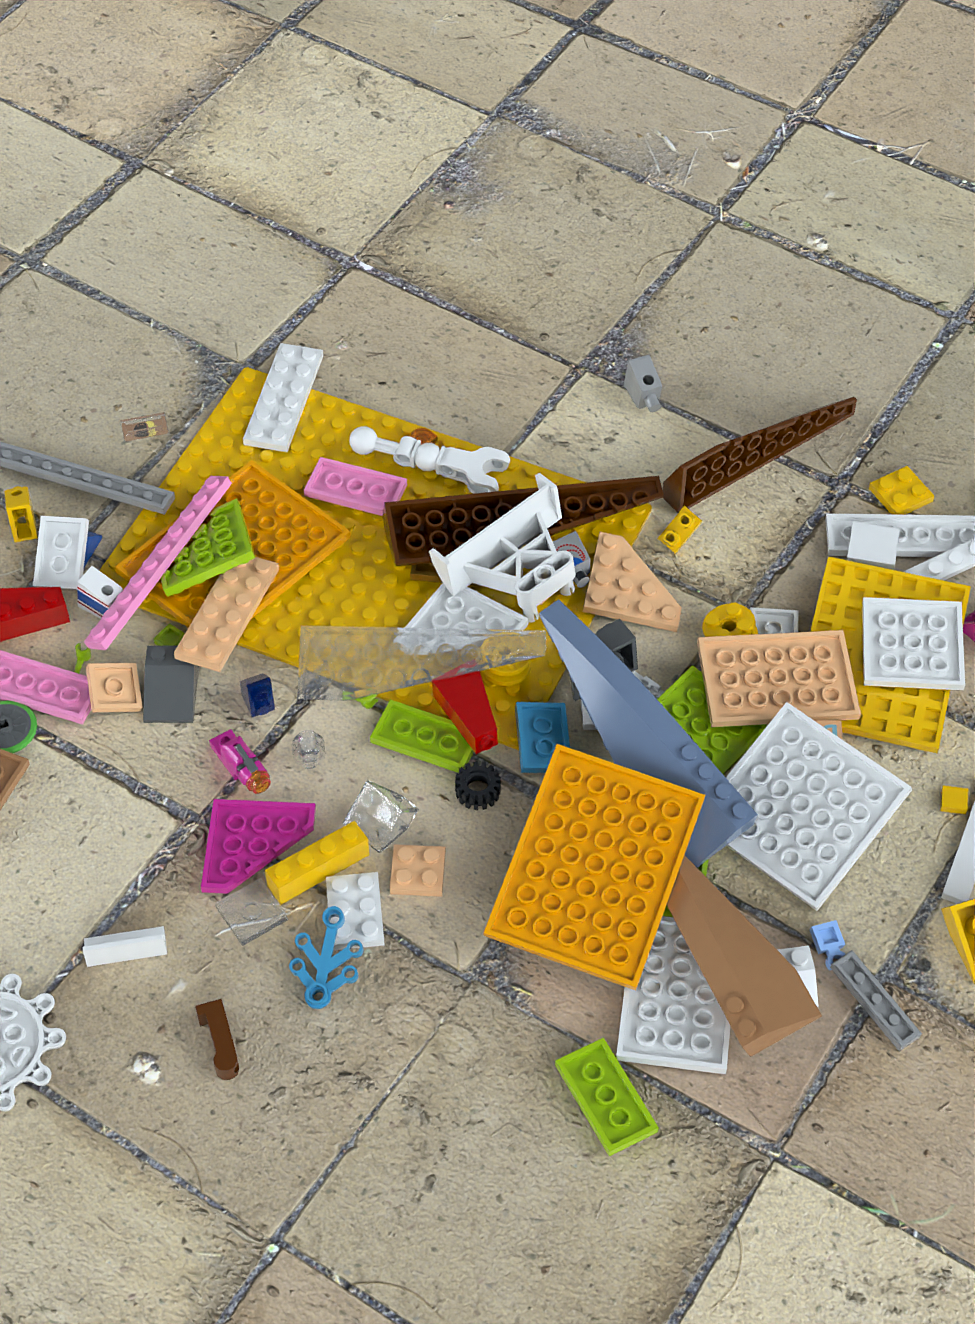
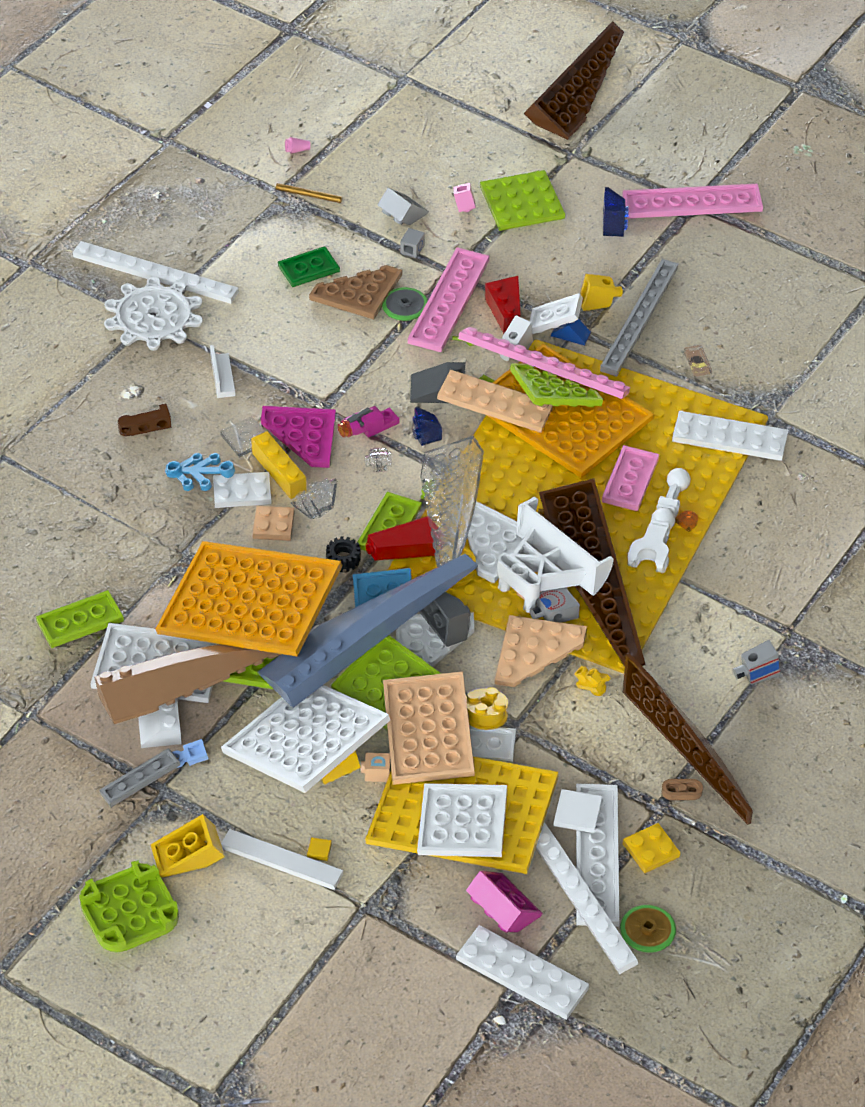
camera: 90 degrees right, 5 degrees down
(114, 687) = (432, 350): light nougat plate -> none
(823, 465) = (681, 789): none -> medium nougat plate

